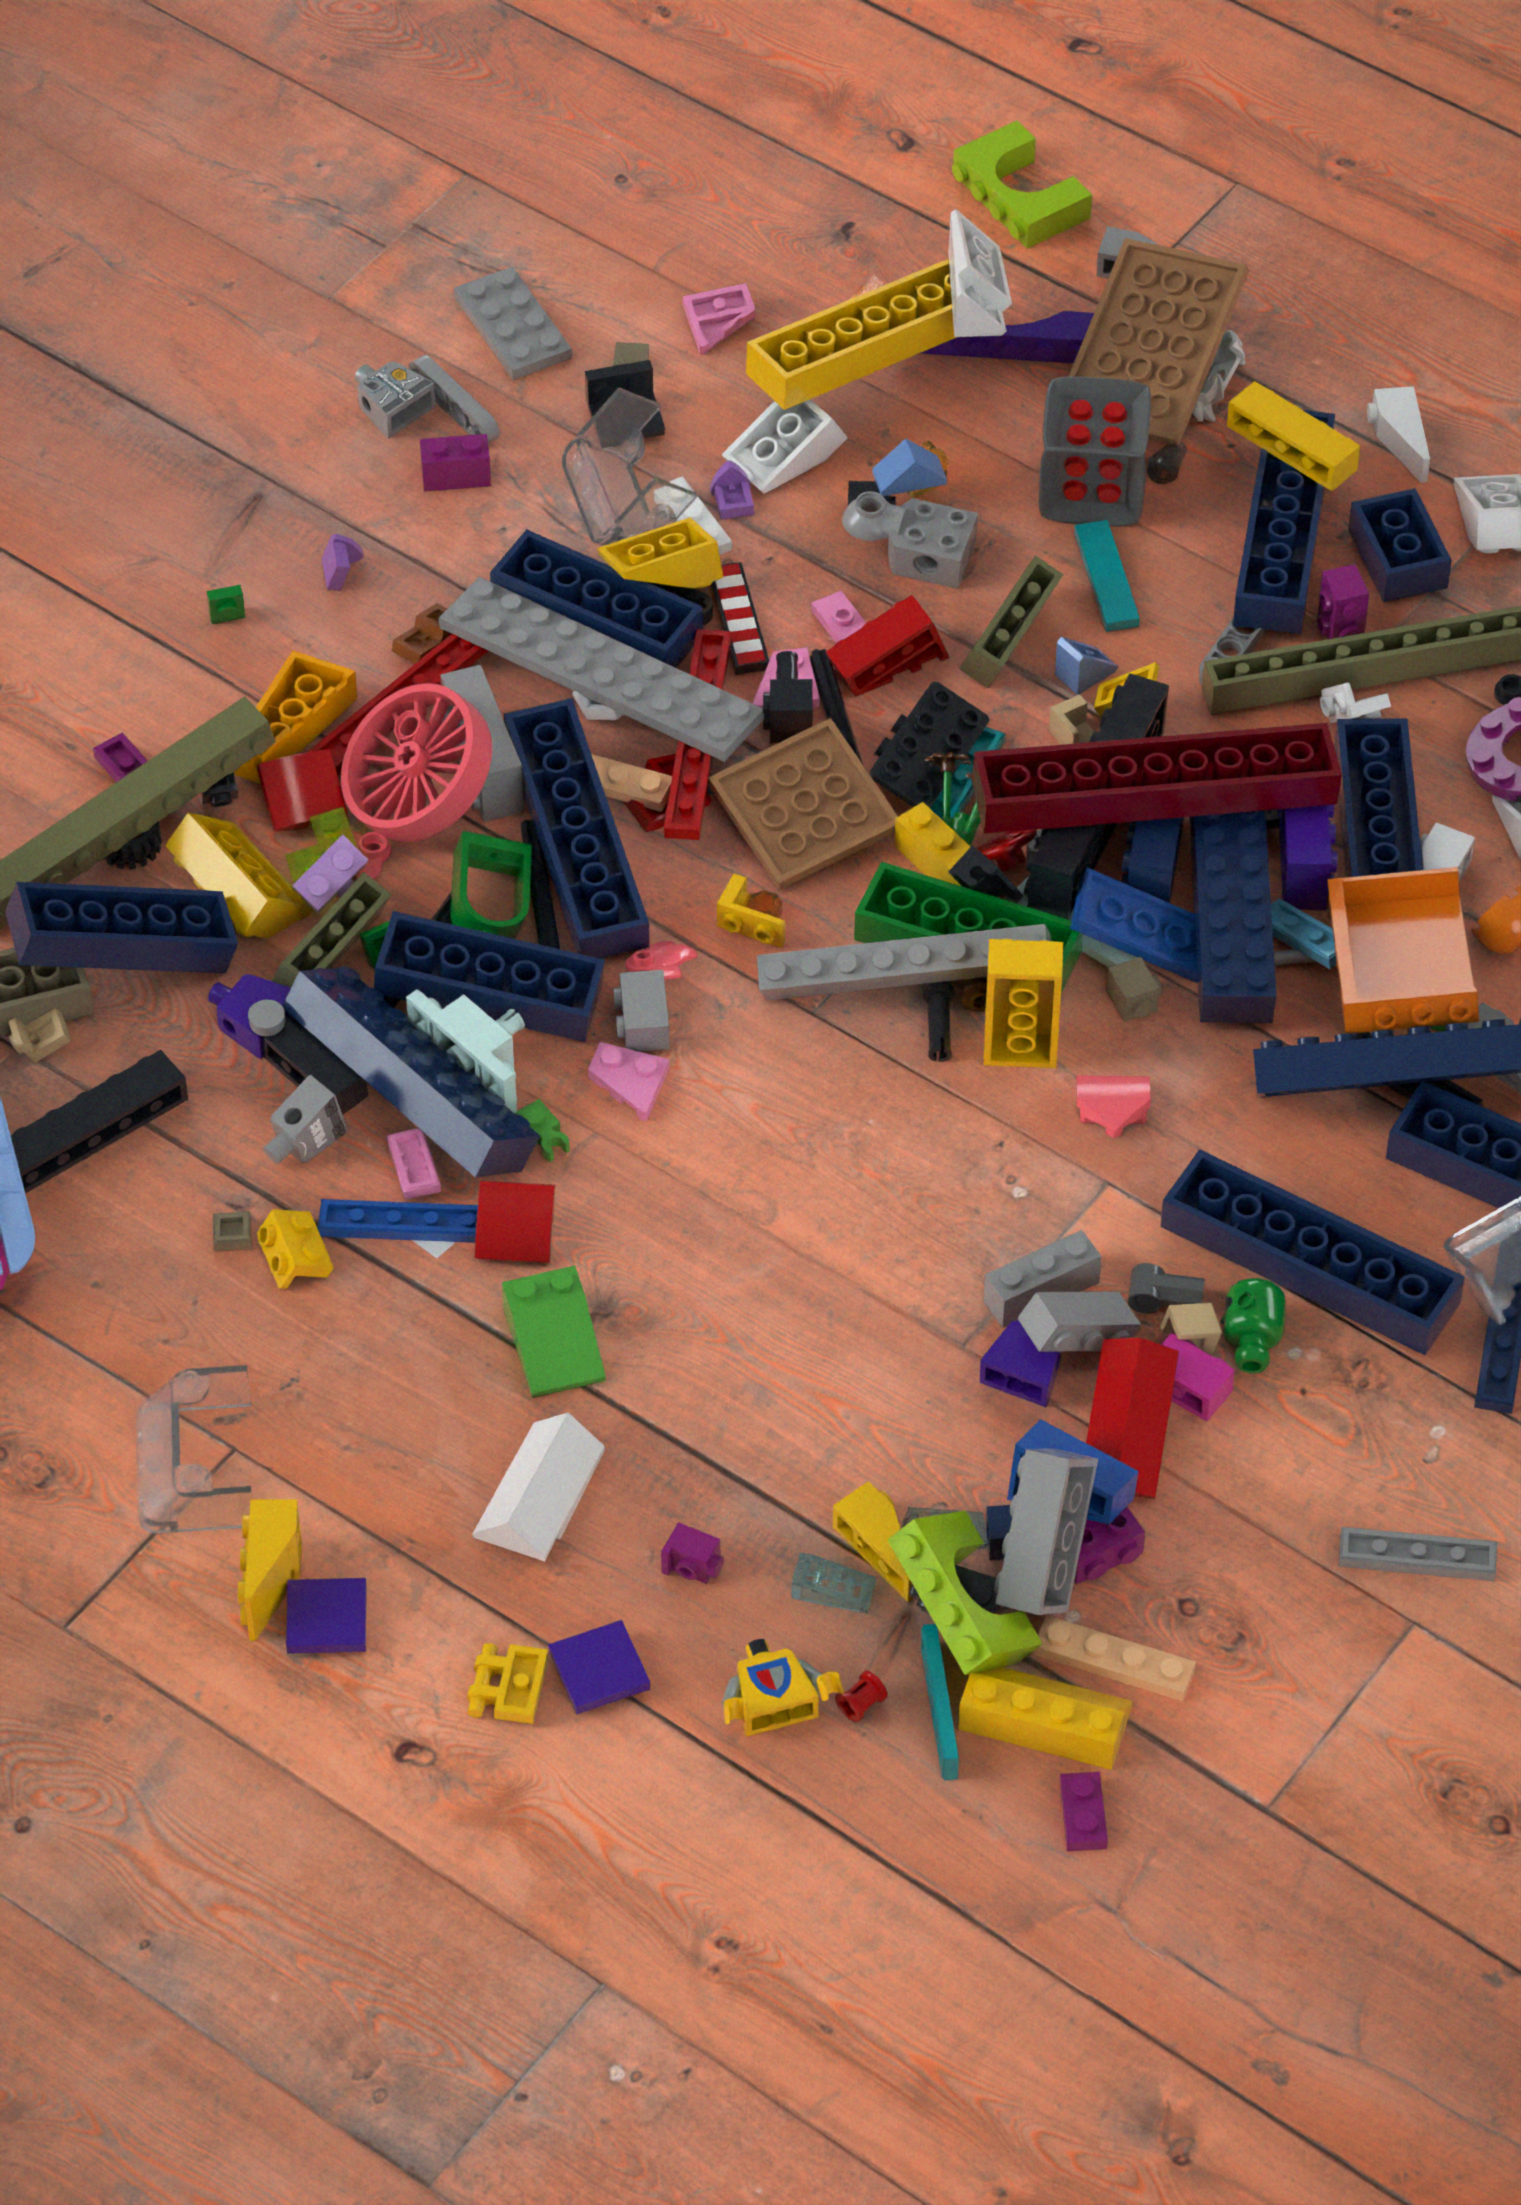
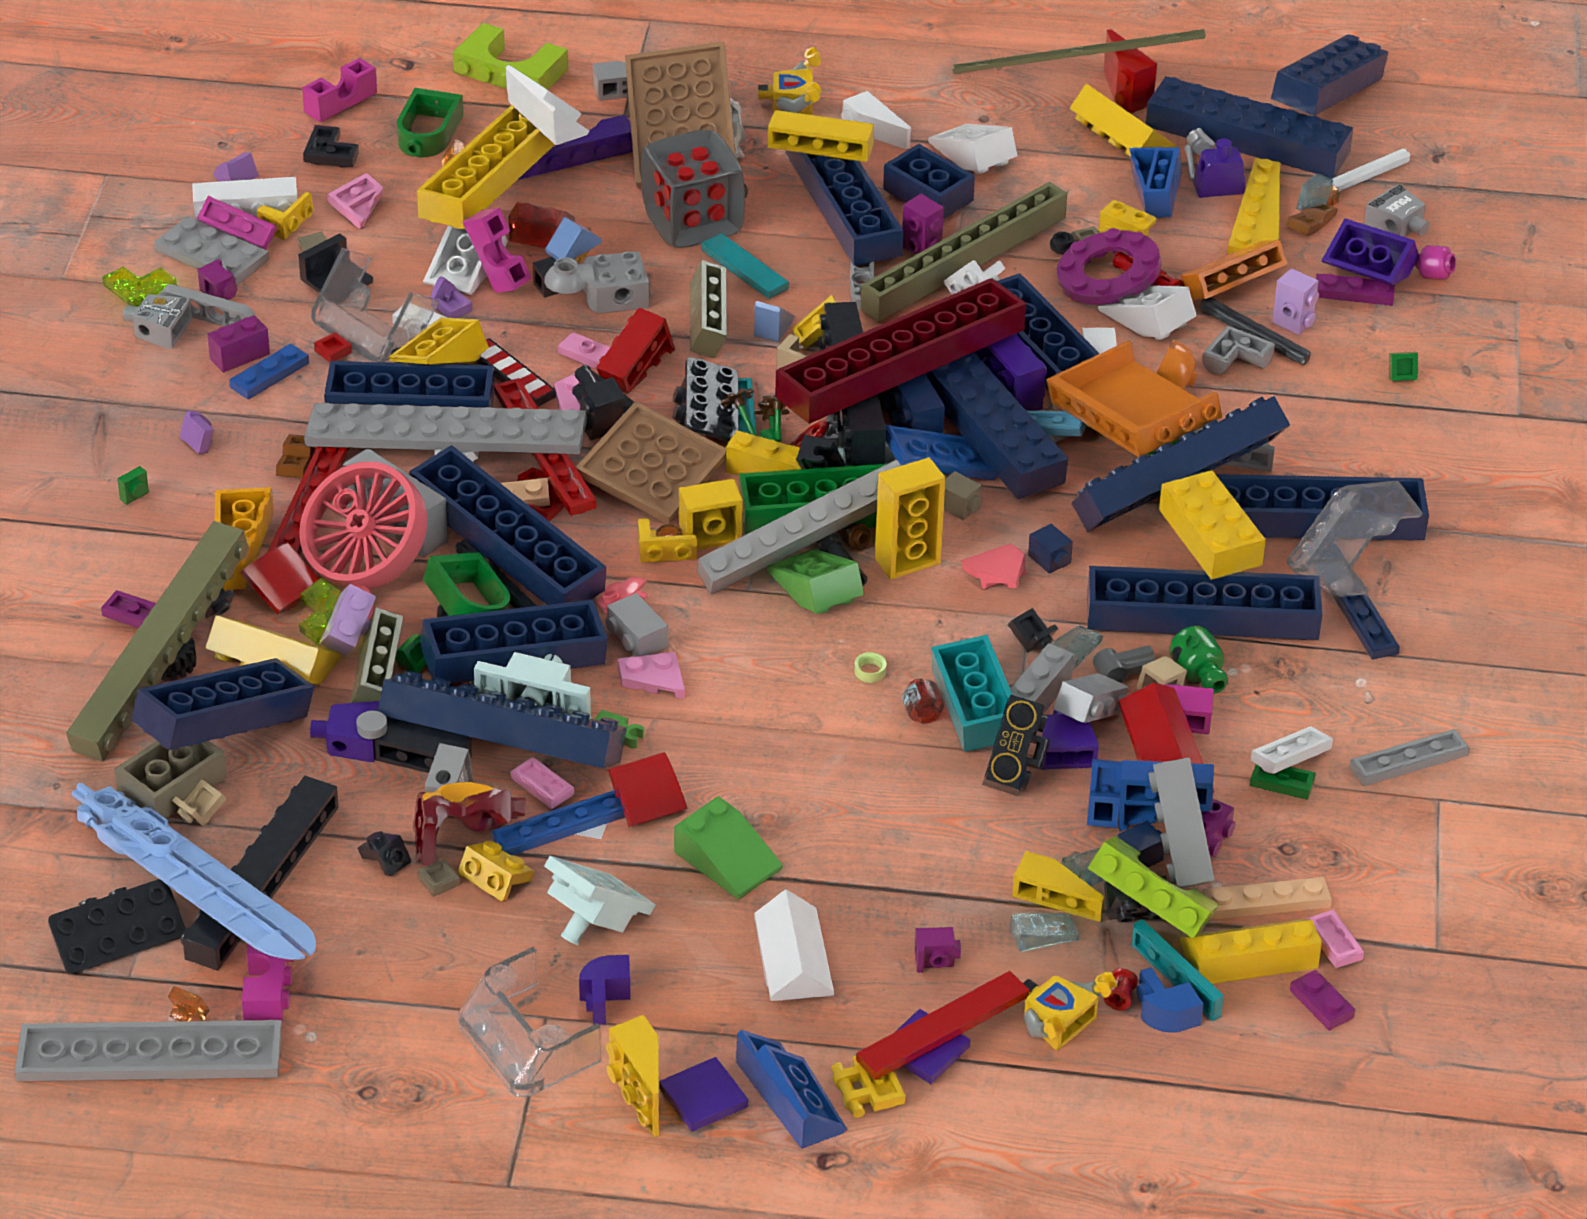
camera: 30 degrees left, 10 degrees down
(194, 1177) = (386, 849): none -> black bracket
(298, 1159) = (471, 803): none -> dark red hips
(312, 1433) = (604, 980): none -> dark purple brick
(361, 1330) = (594, 898): none -> light aqua brick
(394, 344) = (135, 289): none -> clear neon green plate
(422, 1650) = (788, 1089): none -> blue slope
(472, 510) = (269, 371): none -> blue plate
(487, 369) = (216, 280): none -> magenta brick
(557, 298) = (237, 223): none -> dark pink tile
(558, 507) = (332, 347): none -> red plate
(590, 268) = (248, 194): none -> white brick
(606, 226) = (238, 168): none -> medium lavender tile
(618, 317) = (291, 219): none -> yellow bracket
(628, 1651) = (942, 1025): none -> red tile
(727, 232) = (325, 148): none -> black plate
(803, 433) = (503, 269): none -> dark pink arch
(815, 155) = (356, 84): none -> dark pink arch
(819, 900) = (711, 513): none -> yellow brick
(878, 1157) = (870, 658): none -> yellowish green piece
(885, 209) = (424, 103): none -> green window
(890, 1033) = (818, 579): none -> bright green slope
(893, 418) = (534, 224): none -> clear red slope
(897, 1744) = (1169, 1008): none -> blue brick
(899, 1240) = (923, 701): none -> clear red head
(941, 1343) = (1008, 757): none -> black piece
(955, 1253) = (971, 689): none -> teal slope
(997, 1456) = (1104, 793): none -> blue brick
(1089, 1202) = (1032, 631): none -> black bracket
(1127, 1252) = (1077, 646): none -> clear light blue slope
(1150, 1743) = (1336, 939): none -> bright pink plate
(1188, 1103) = (1050, 548): none -> dark blue brick
(1241, 1521) = (1288, 781): none -> green tile
(1274, 1485) = (1291, 749): none -> white plate
(1333, 348) = (794, 88): none -> torso
(1373, 1158) = (1212, 524): none -> yellow brick

